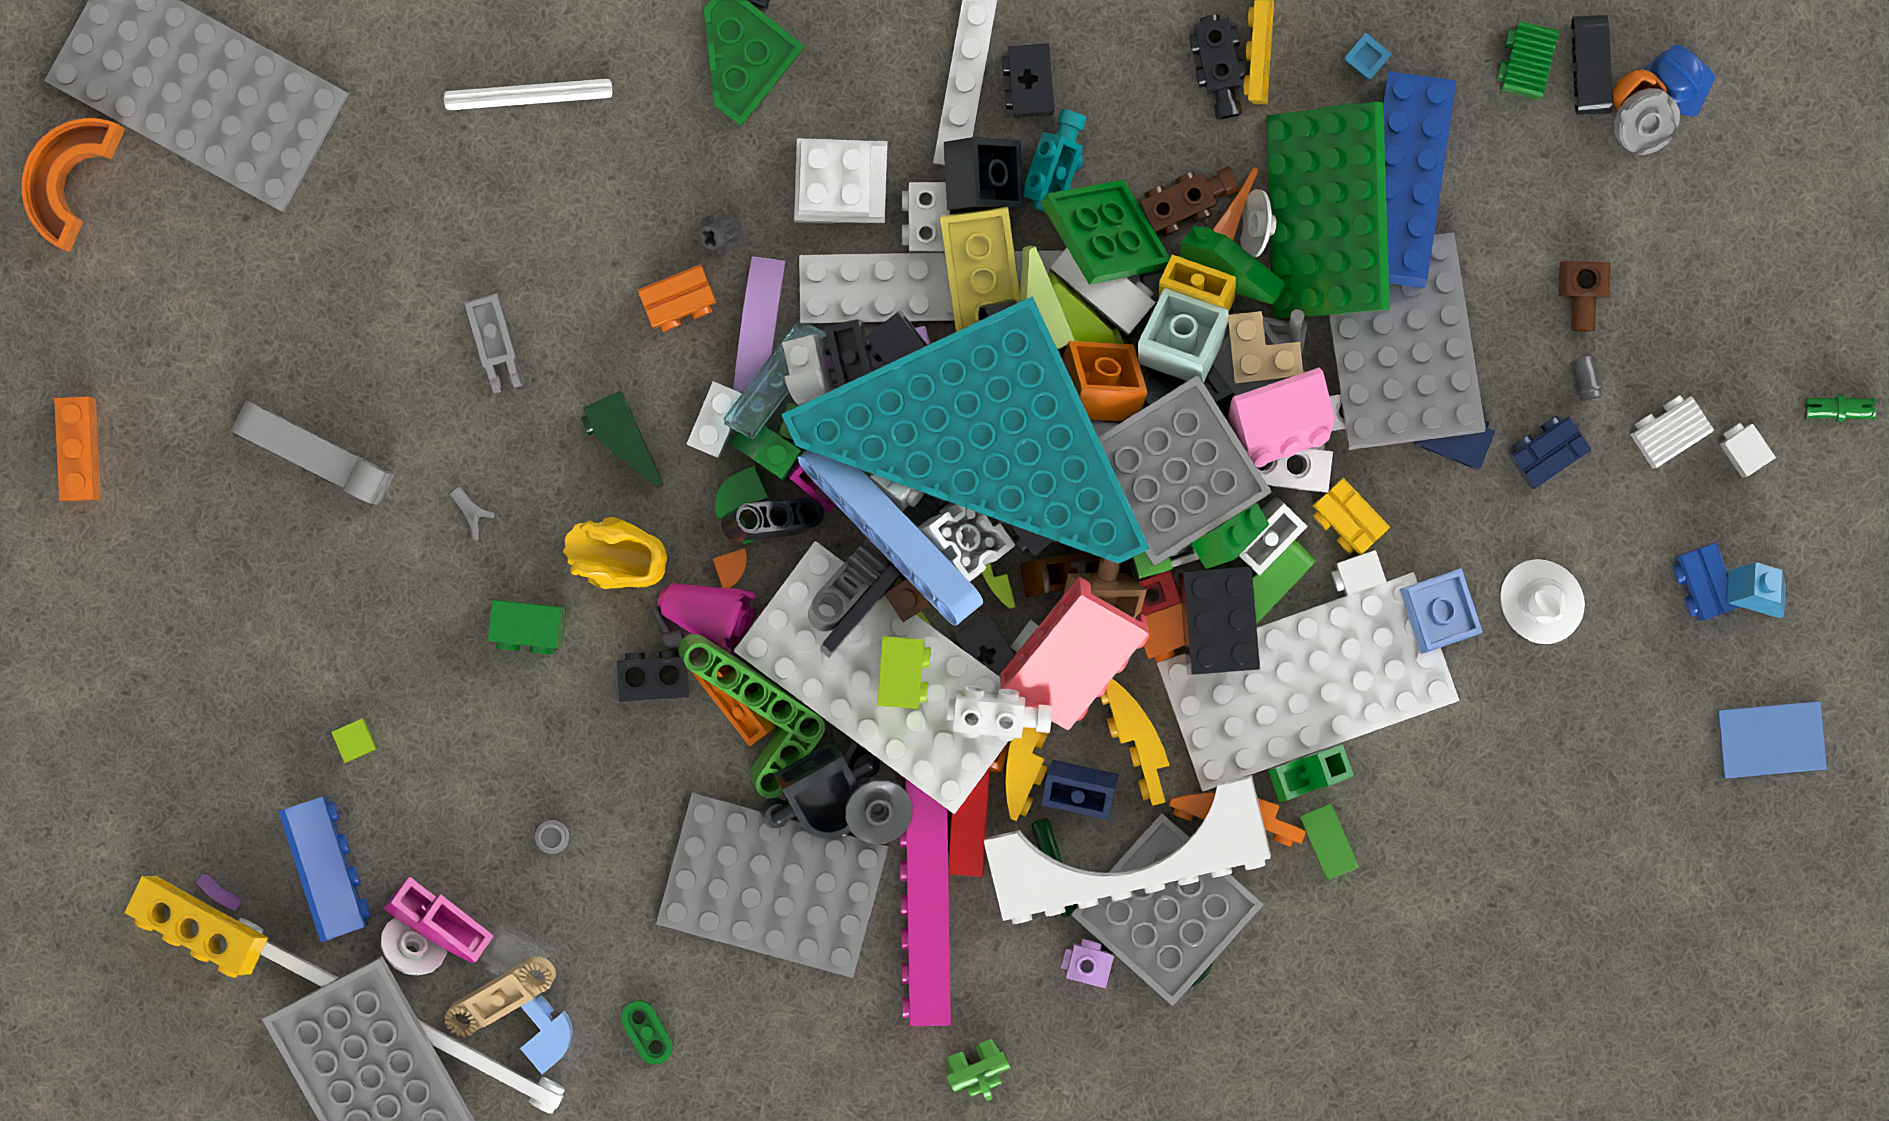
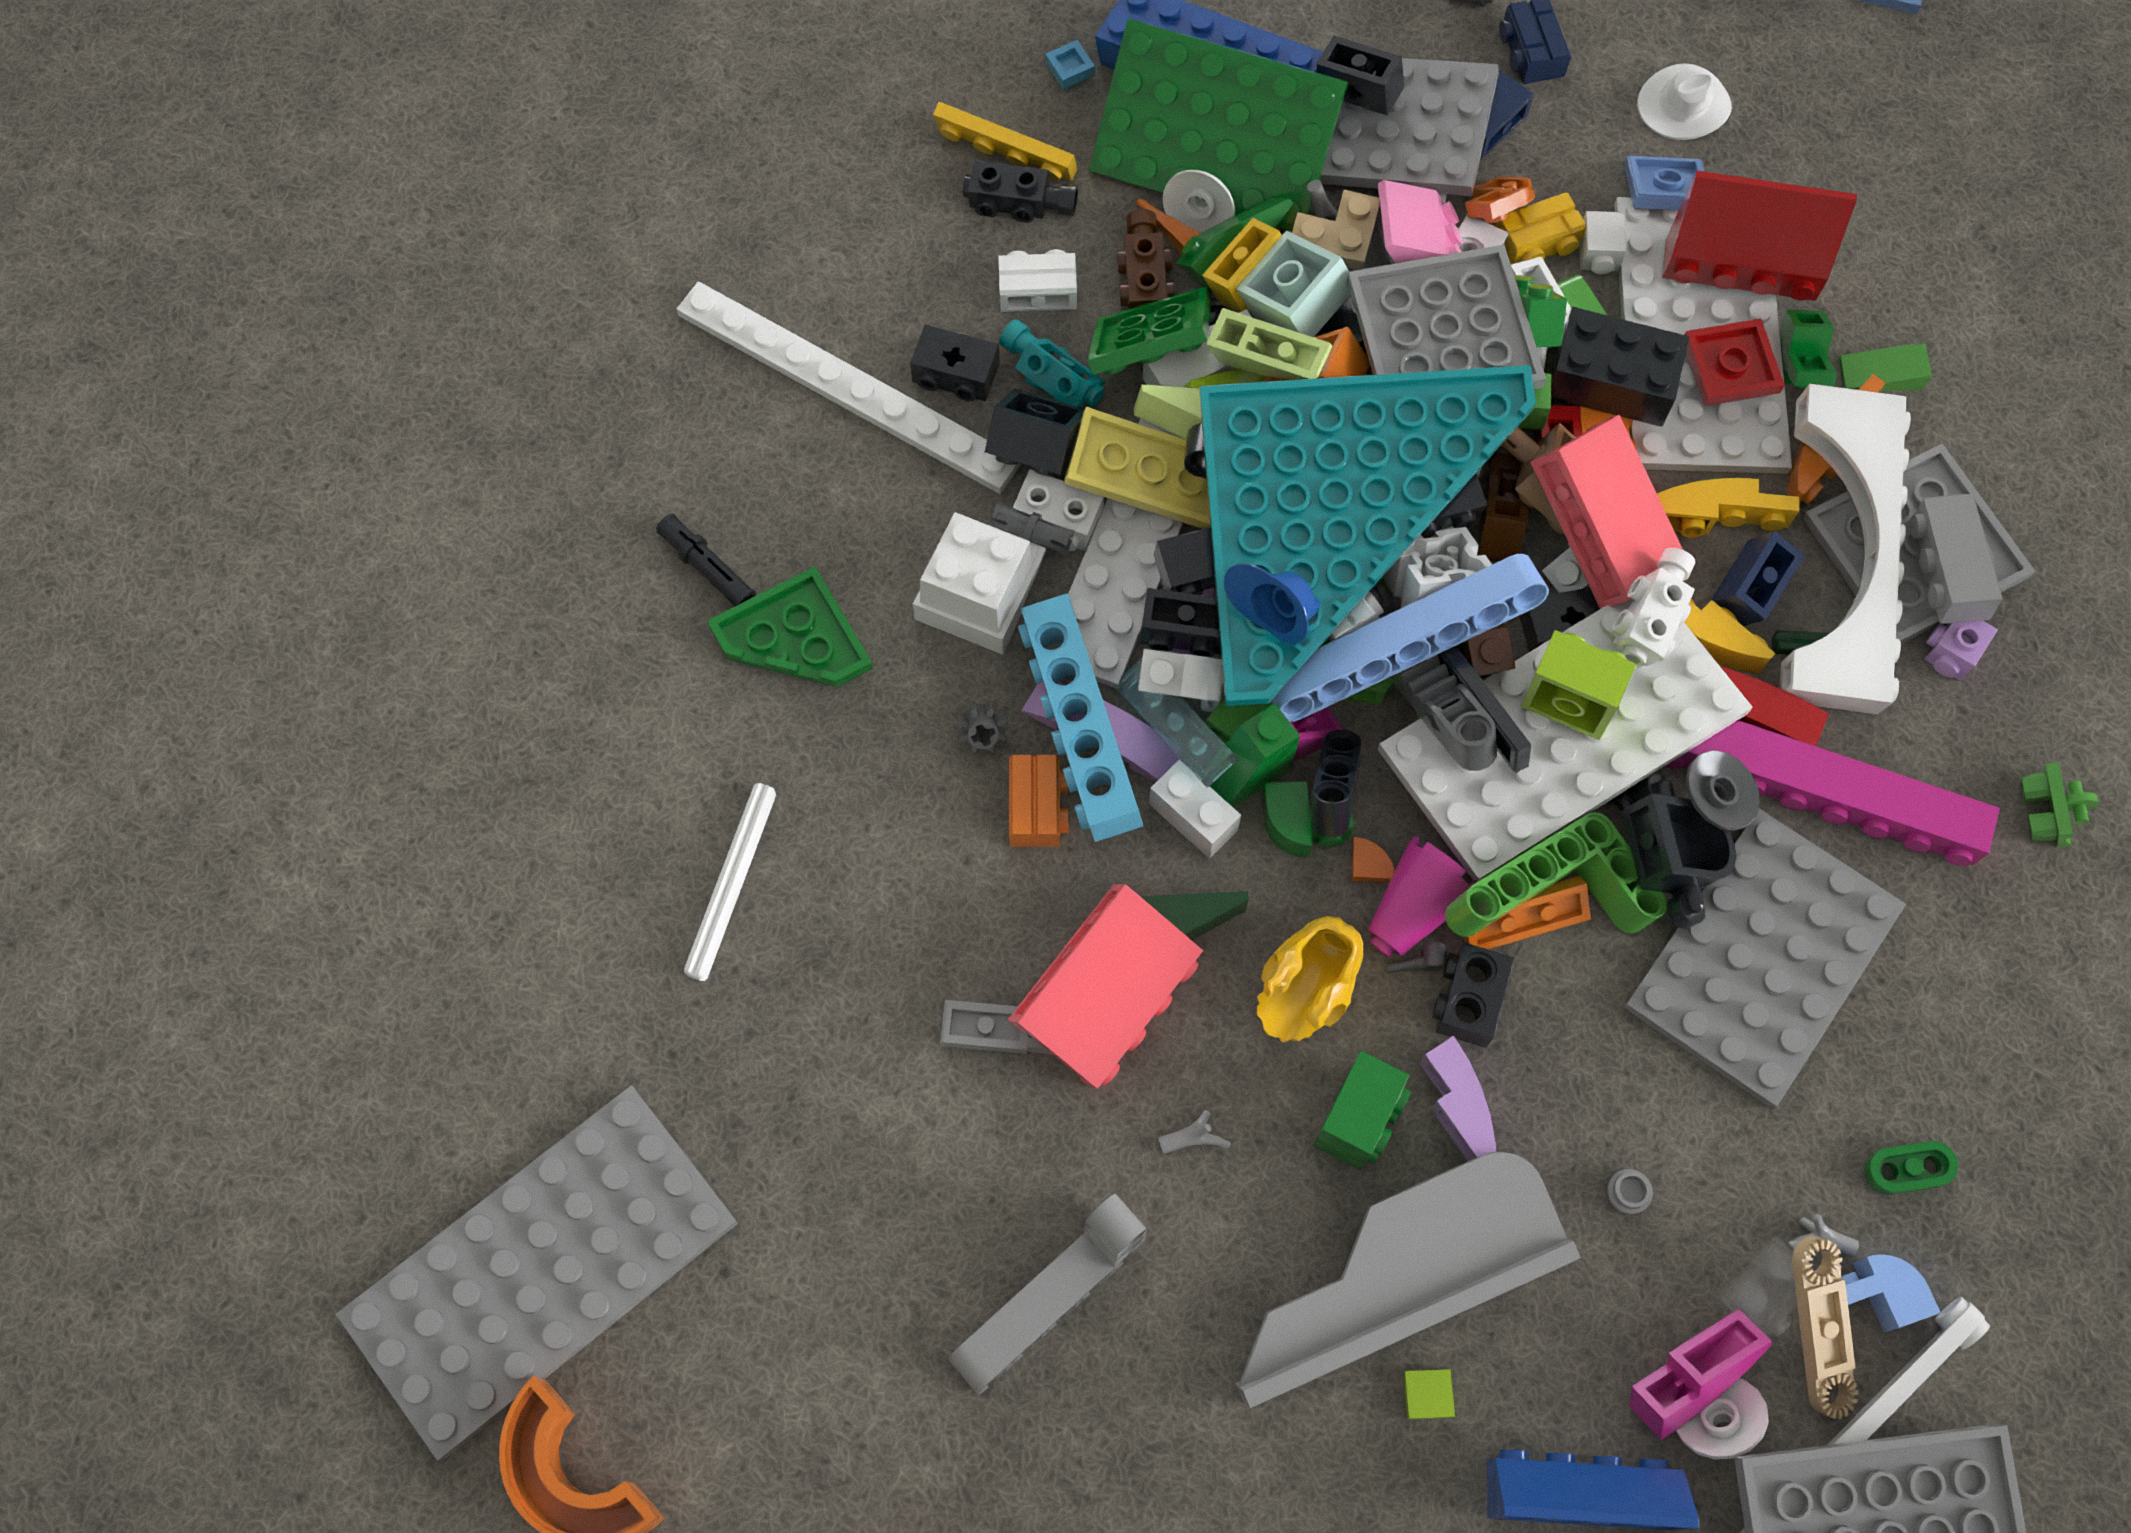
camera: 70 degrees left, 20 degrees down
(432, 700) = (1412, 1267): none -> light grey piece
(547, 407) = (1107, 985): none -> coral panel
(566, 696) = (1463, 1103): none -> lavender slope
(572, 984) = (1846, 1244): none -> light grey bar
(687, 365) = (1117, 809): none -> medium azure brick
(867, 423) = (1275, 602): none -> blue piece
(895, 205) = (1032, 528): none -> dark grey pin
(1100, 335) = (1266, 348): none -> yellowish green slope
(1135, 116) = (1037, 281): none -> white brick
(1148, 936) = (1955, 559): none -> light grey brick
(1272, 714) = (1733, 362): none -> red plate
(1362, 480) = (1498, 197): none -> orange plate
(1379, 697) = (1757, 235): none -> red slope
(1419, 316) = (1372, 74): none -> black brick

